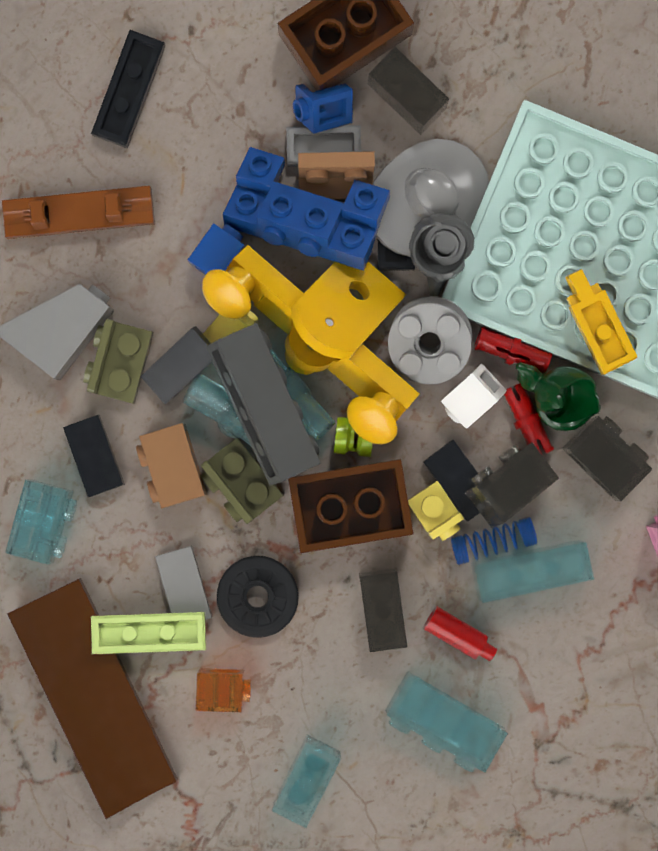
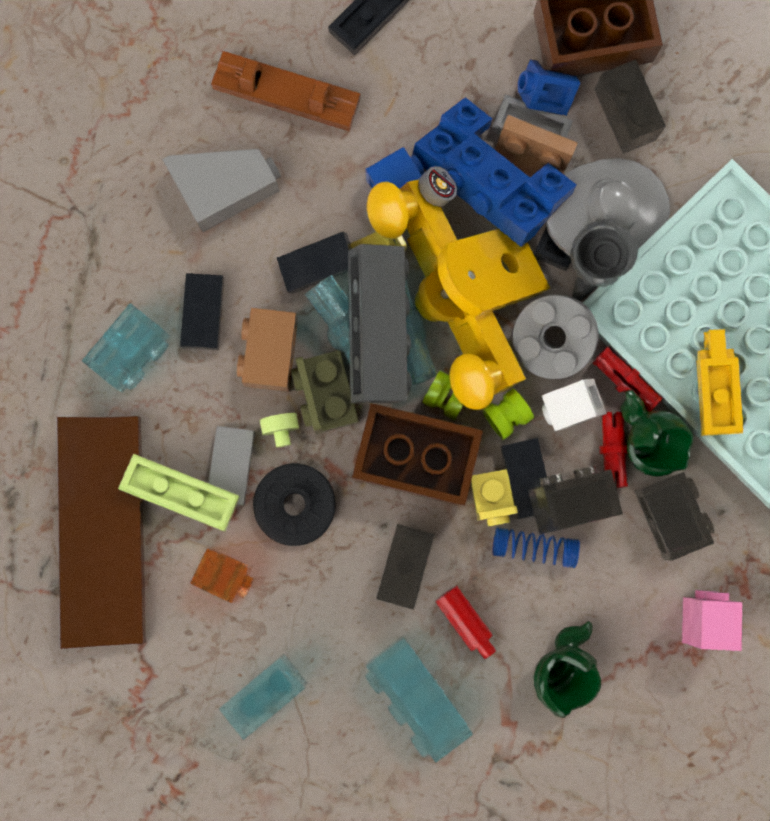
camera: 25 degrees right, 5 degrees down
(118, 361) = (262, 235): olive bracket -> none
(214, 532) = (280, 426): none -> yellowish green tile
(262, 249) = (437, 186): none -> tile
(417, 429) = (509, 413): none -> lime wheel
(532, 571) = (560, 591): clear light blue brick -> none
(570, 642) = (568, 675): none -> dark green hair

